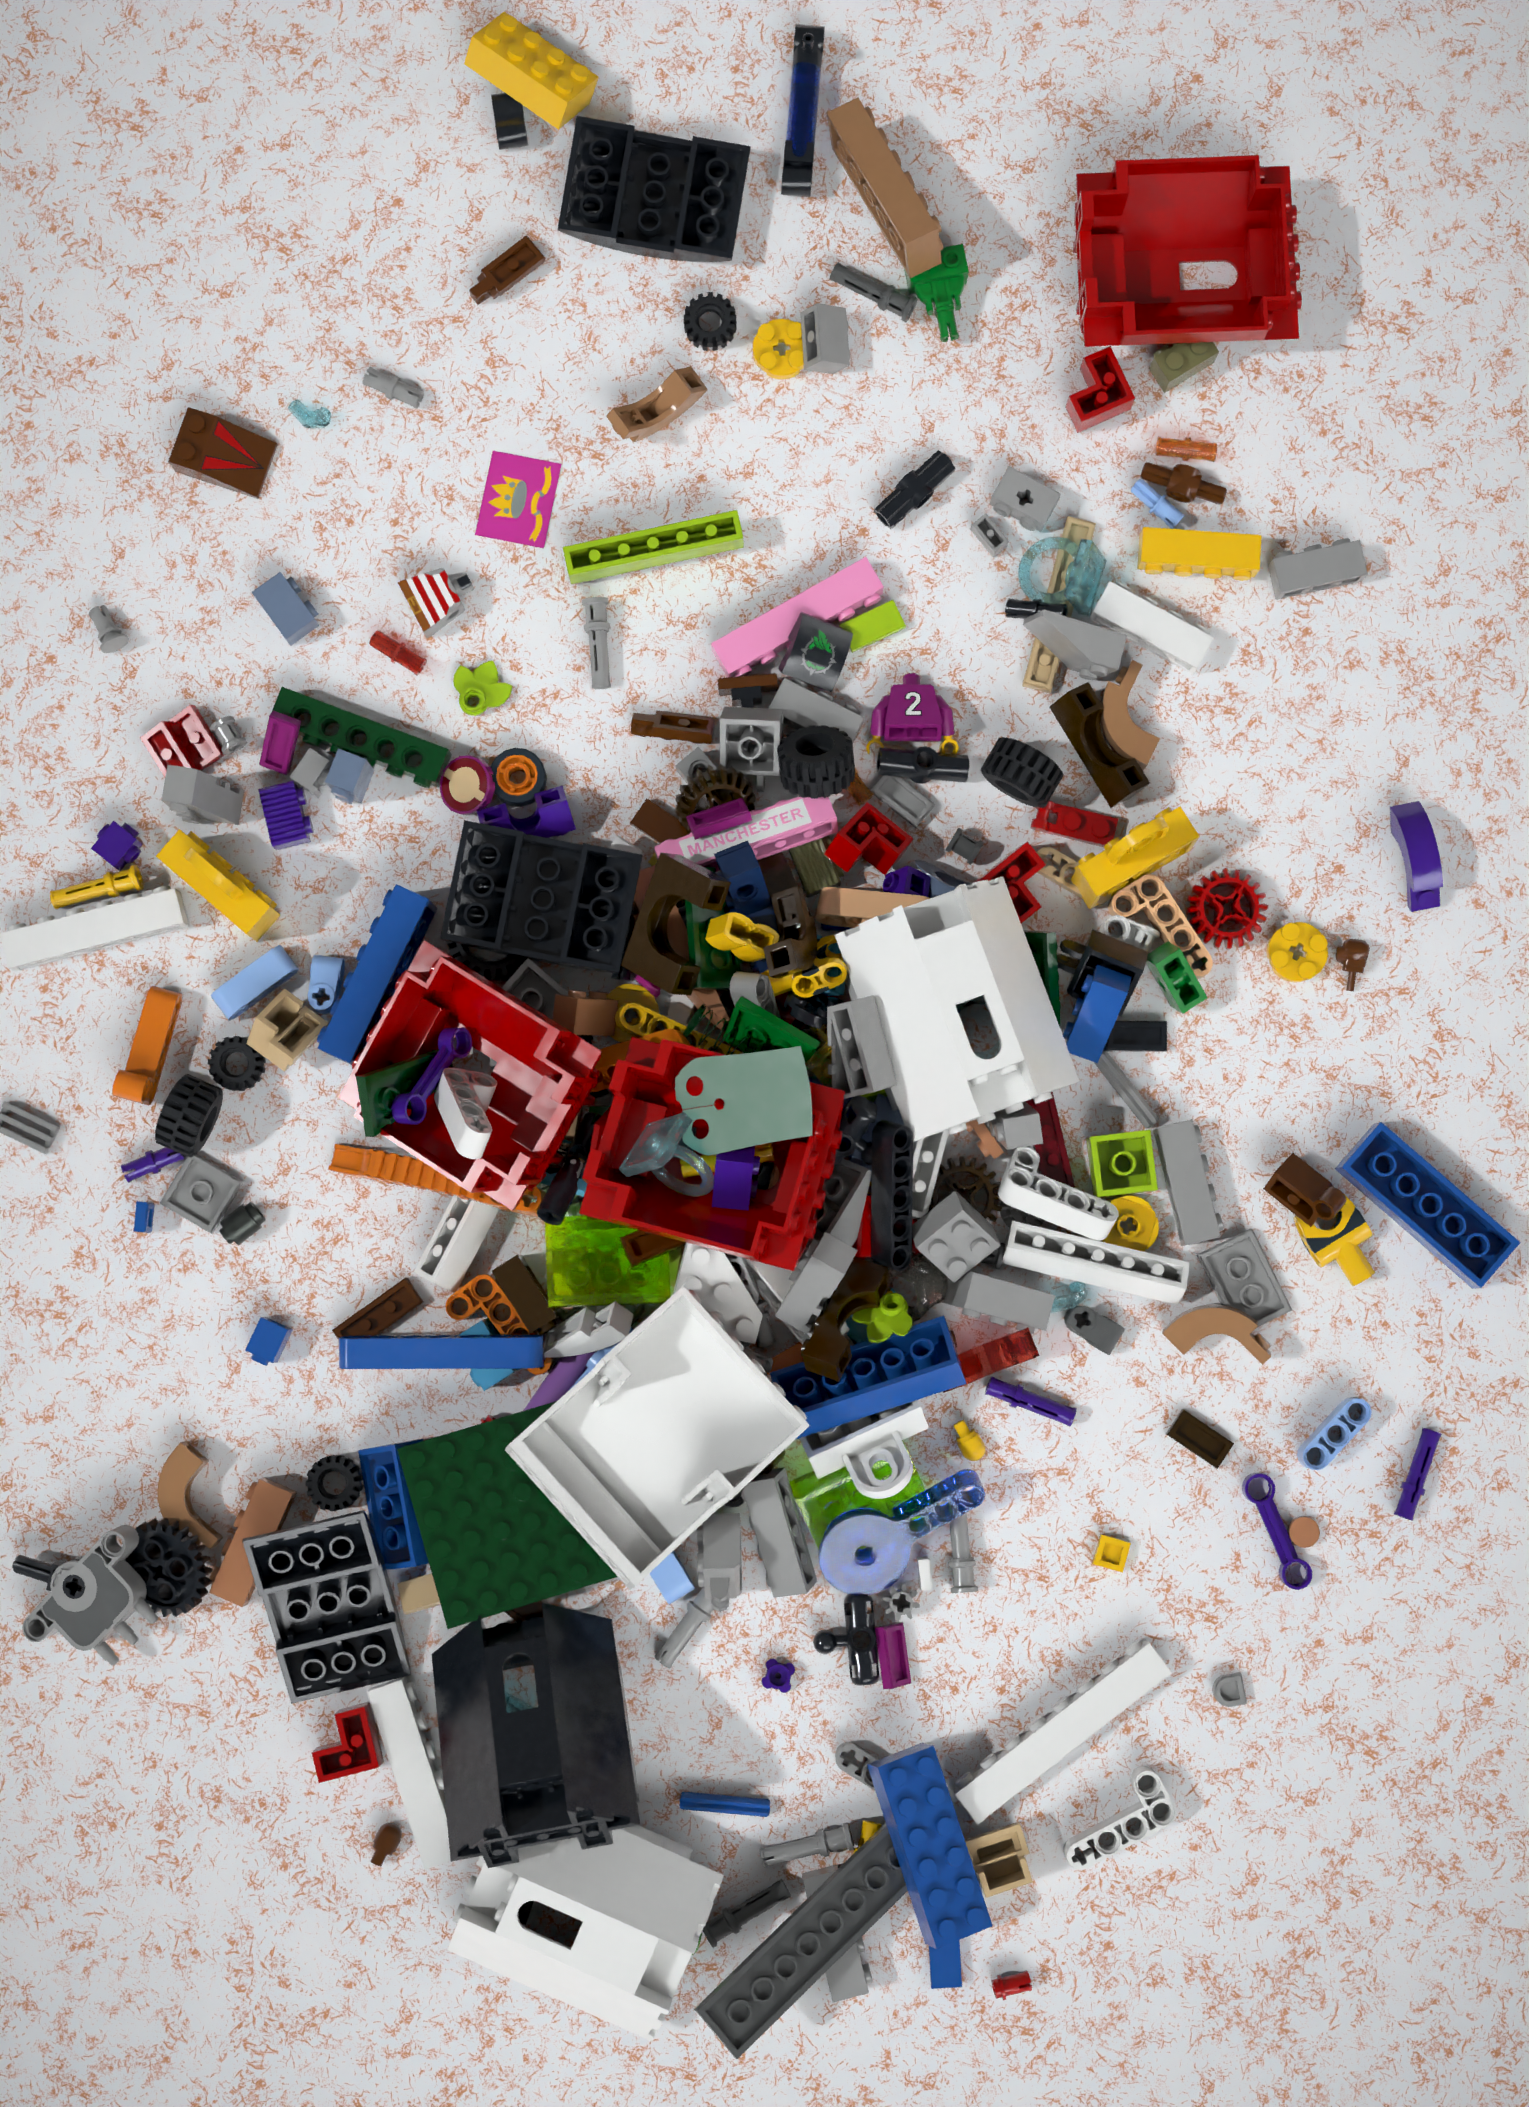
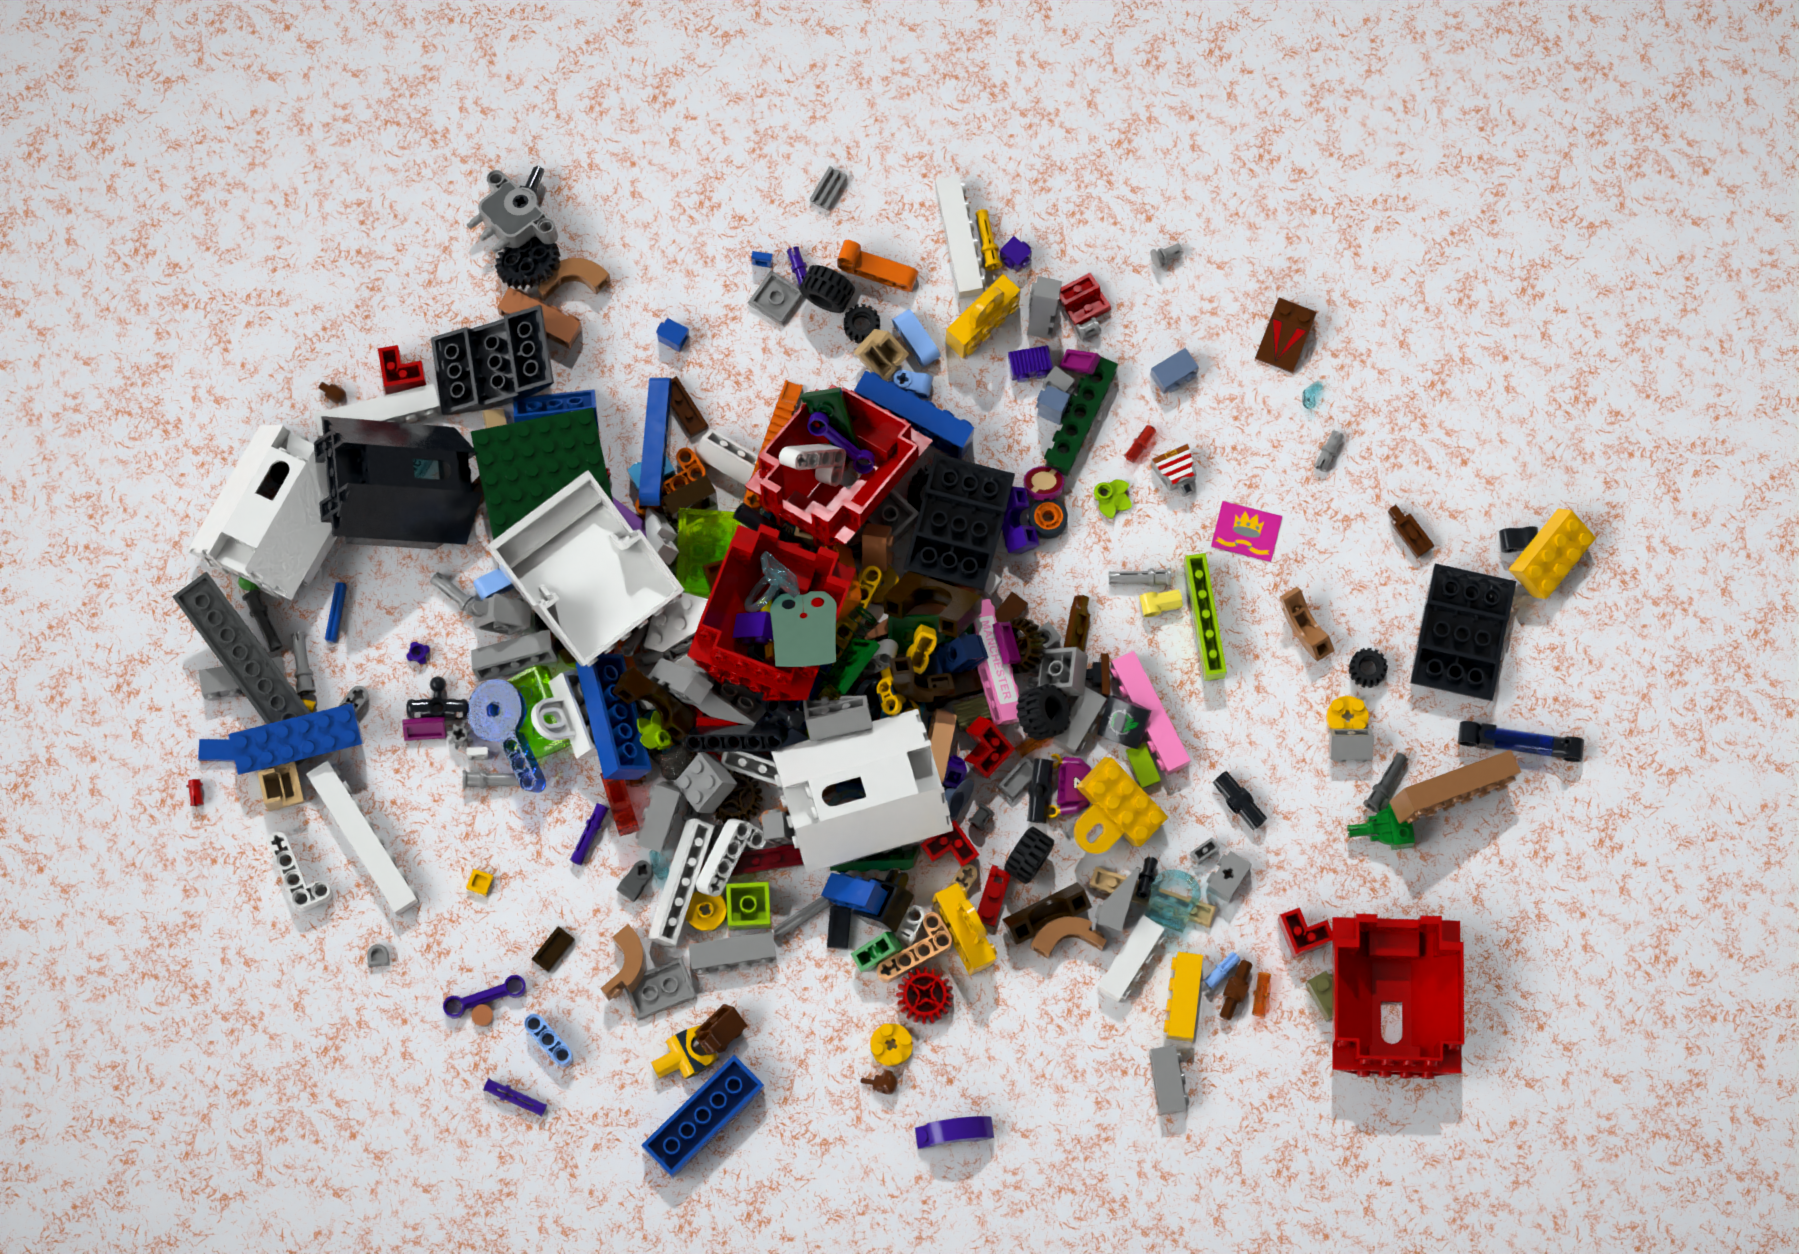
camera: 90 degrees right, 10 degrees down
(241, 1223) = (752, 321): pearl dark grey brick -> none
(317, 1490) = (570, 360): black tyre -> none
(635, 618) = (1155, 604): none -> light yellow piece
(946, 651) = (1116, 805): none -> yellow brick
(969, 1442) = (564, 791): yellow cylinder -> none

